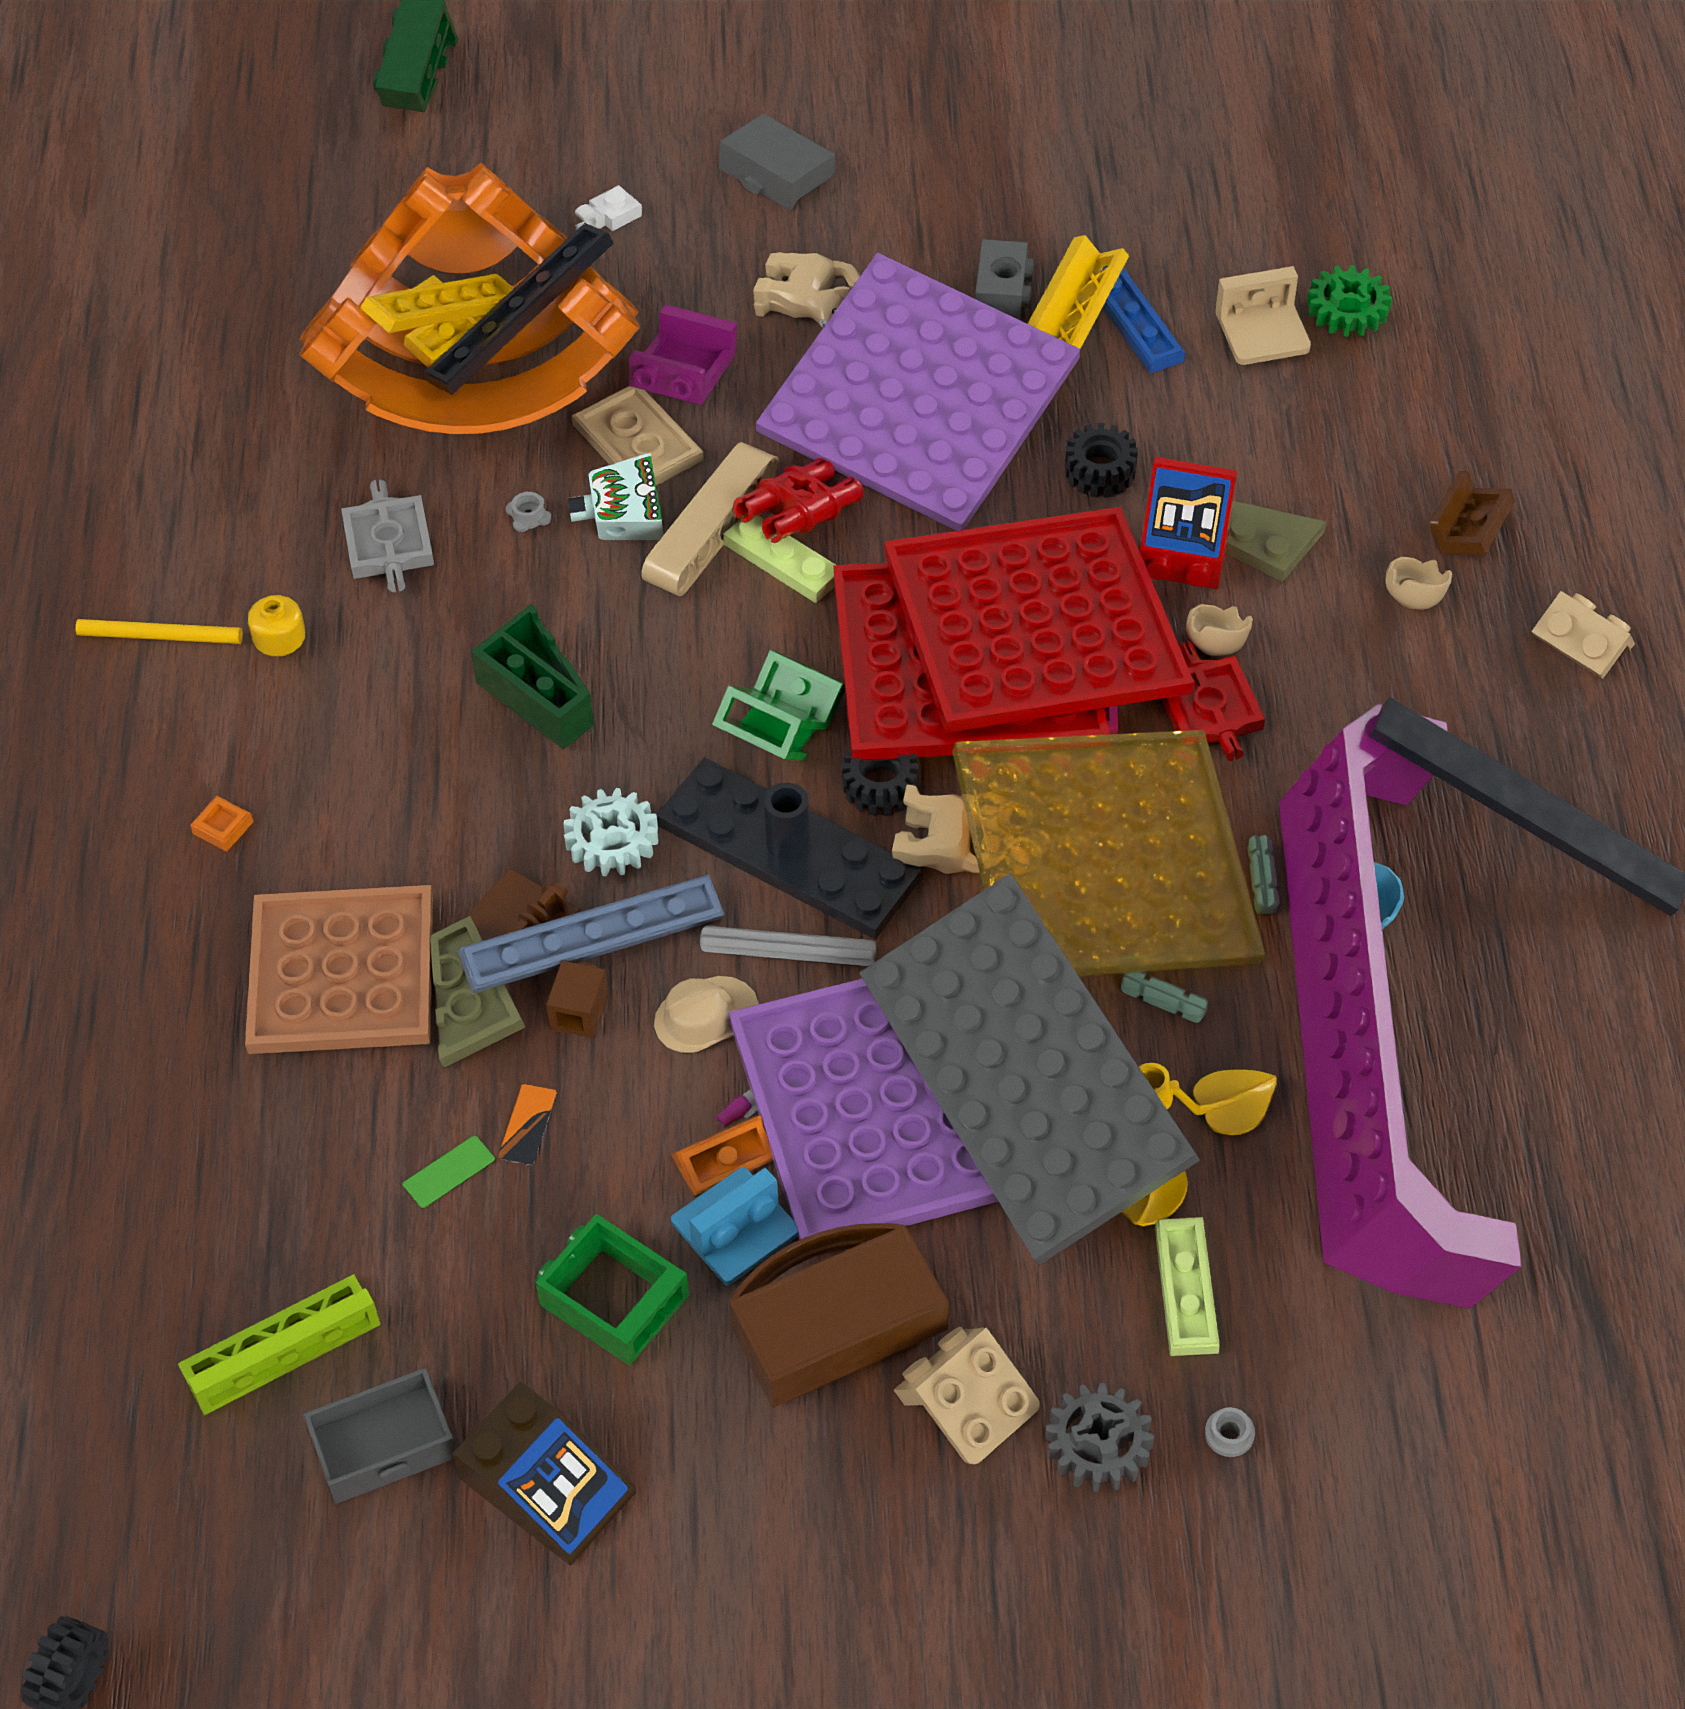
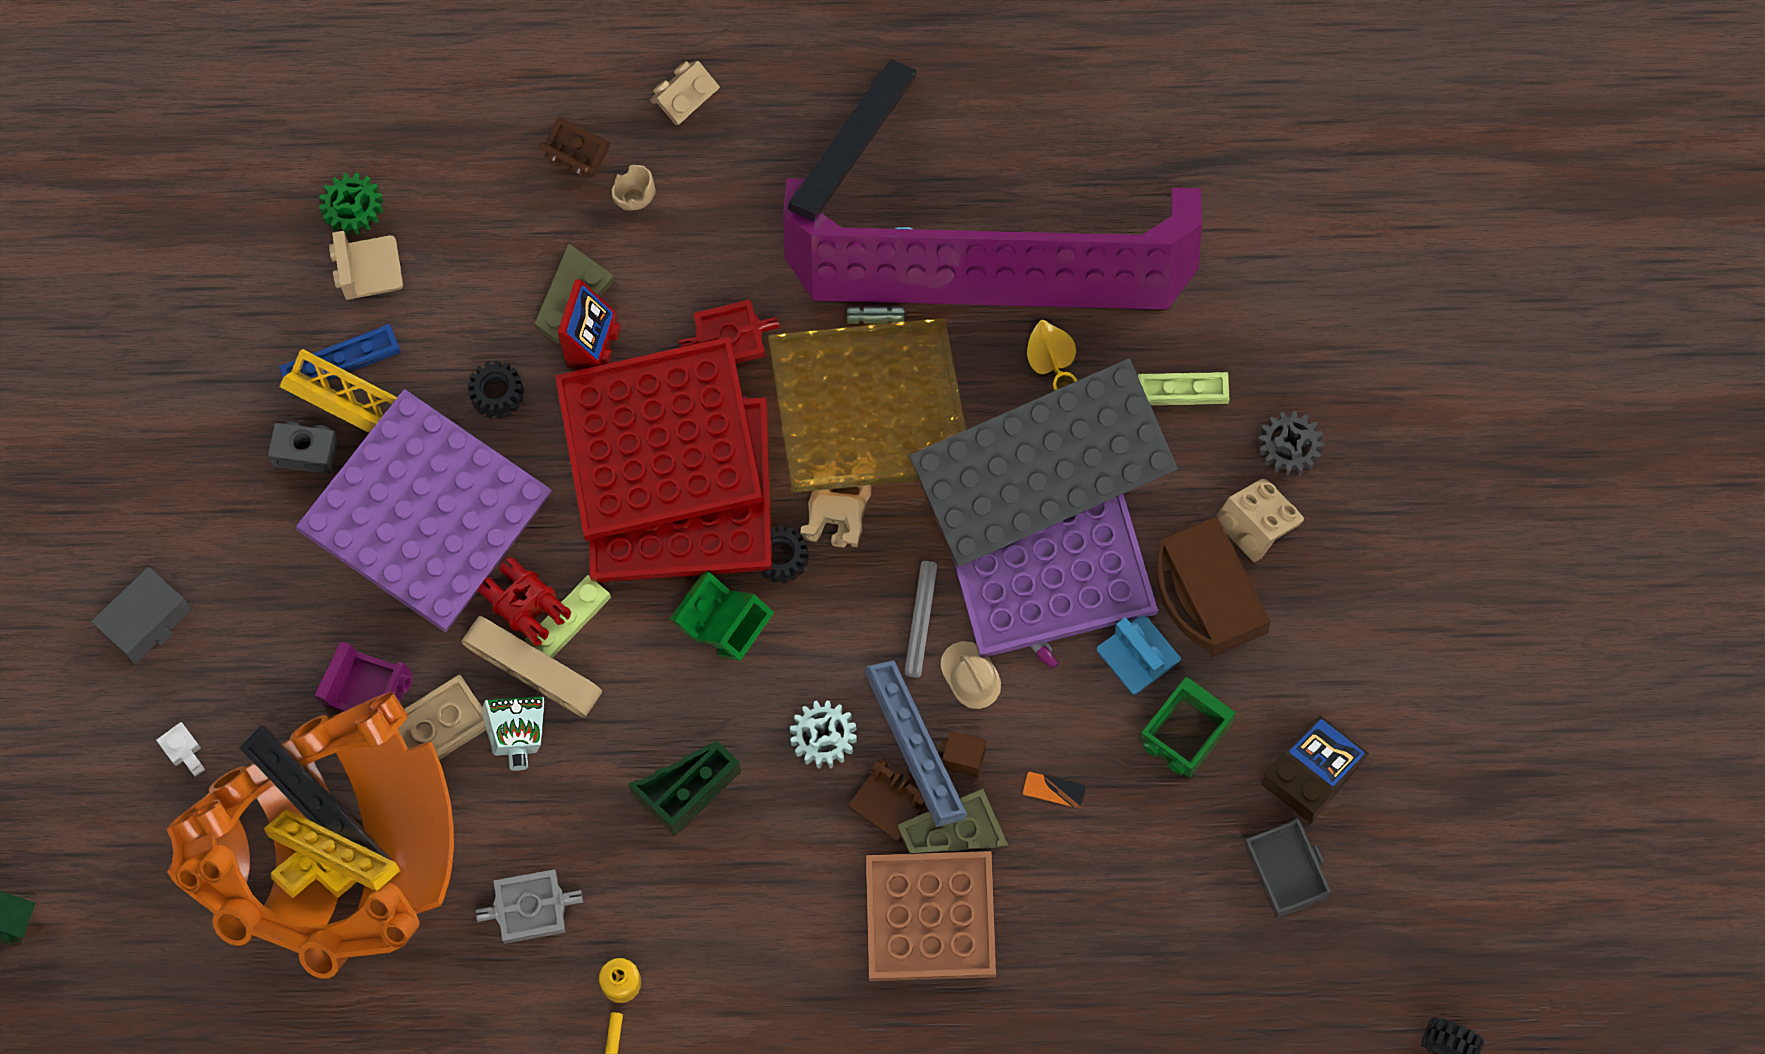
camera: 85 degrees left, 15 degrees up
(221, 823) = (794, 1012): orange tile -> none
(280, 1351) = (1231, 932): lime fence -> none
(448, 1171) = (1089, 839): bright green sticker -> none
(528, 511) = (510, 794): light grey plate -> none
(723, 1153) = (1081, 663): orange slope -> none
(789, 846) = (835, 619): black plate -> none
(807, 287) = (295, 593): tan animal -> none
(1164, 995) = (972, 380): sand green axle -> none
(1217, 630) = (667, 322): tan hair -> none
(1231, 1419) = (1284, 364): light grey plate -> none

